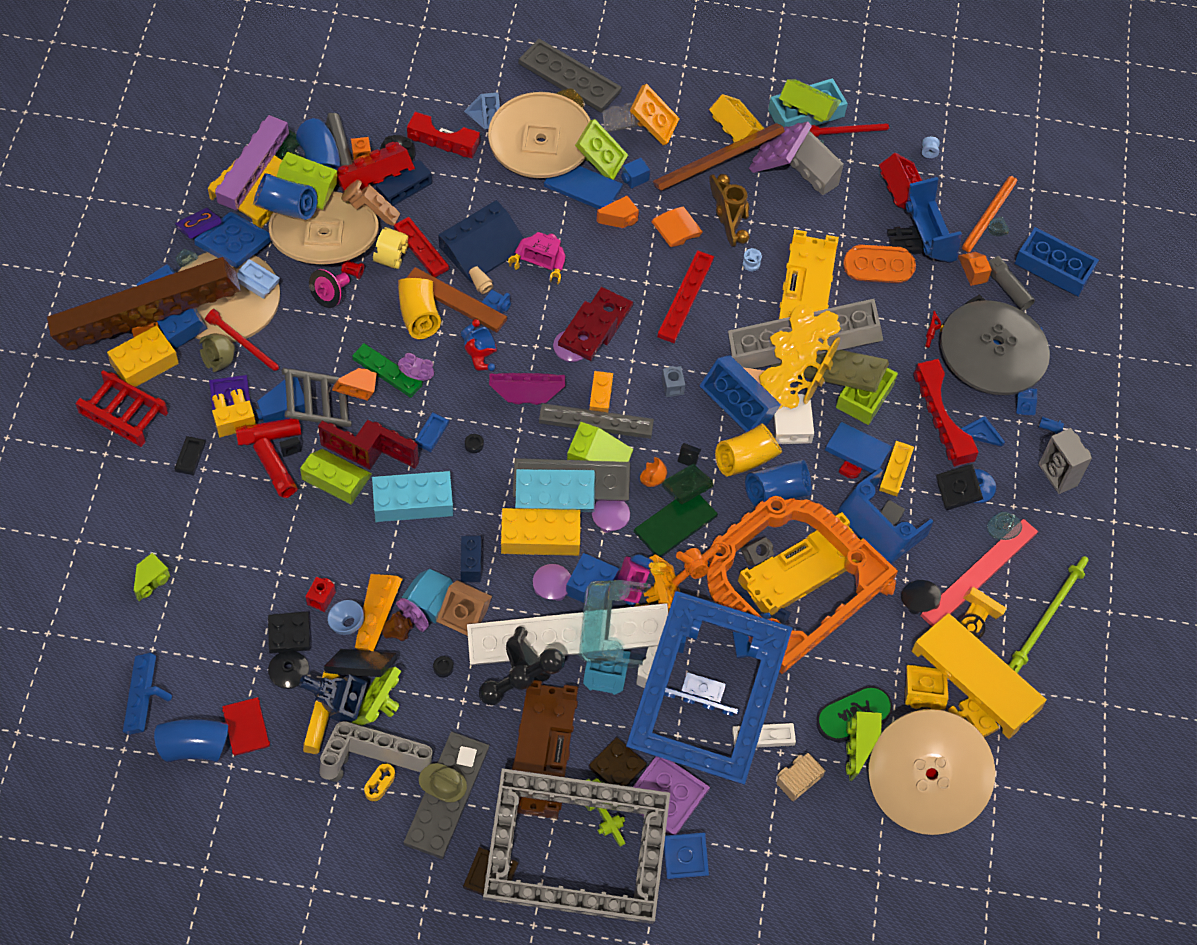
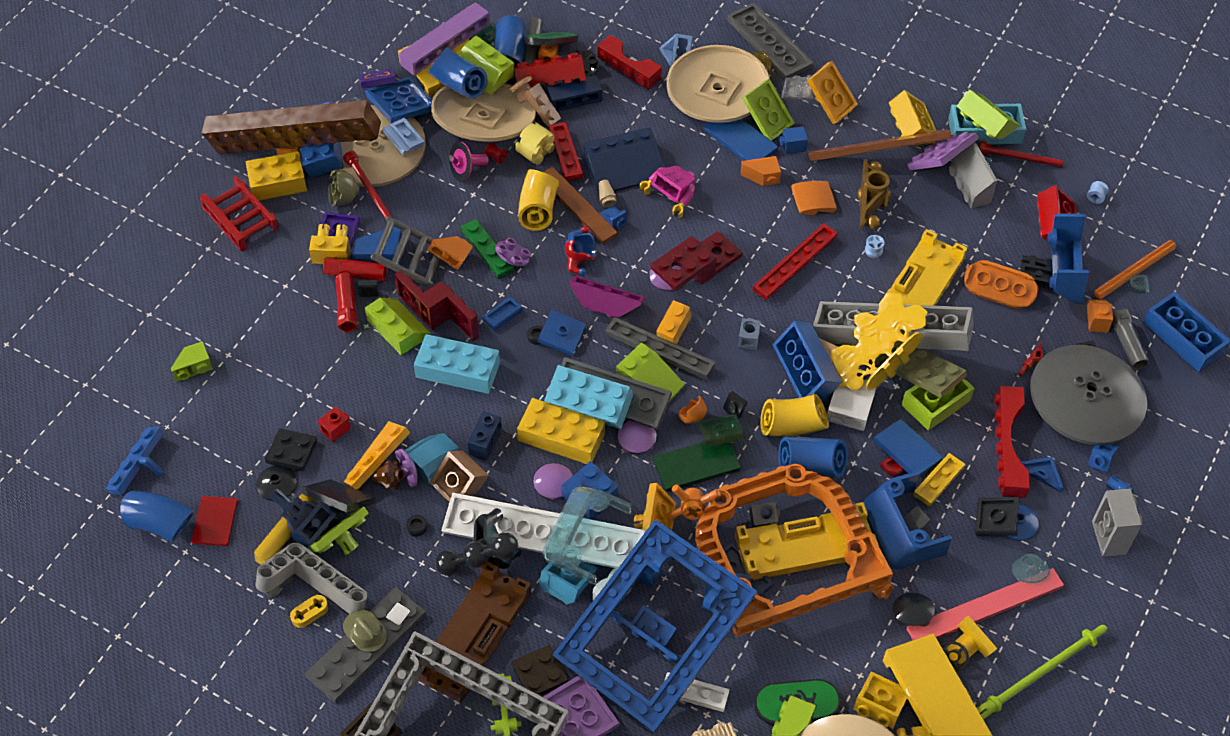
camera: 25 degrees right, 5 degrees down
(190, 455) = (278, 271): black tile -> none
(341, 612) = (344, 447): medium blue piece -> none
(358, 131) = (551, 38): none -> black tile
(498, 434) = (561, 332): none -> blue plate
(637, 570) = (632, 493): dark pink torso -> none

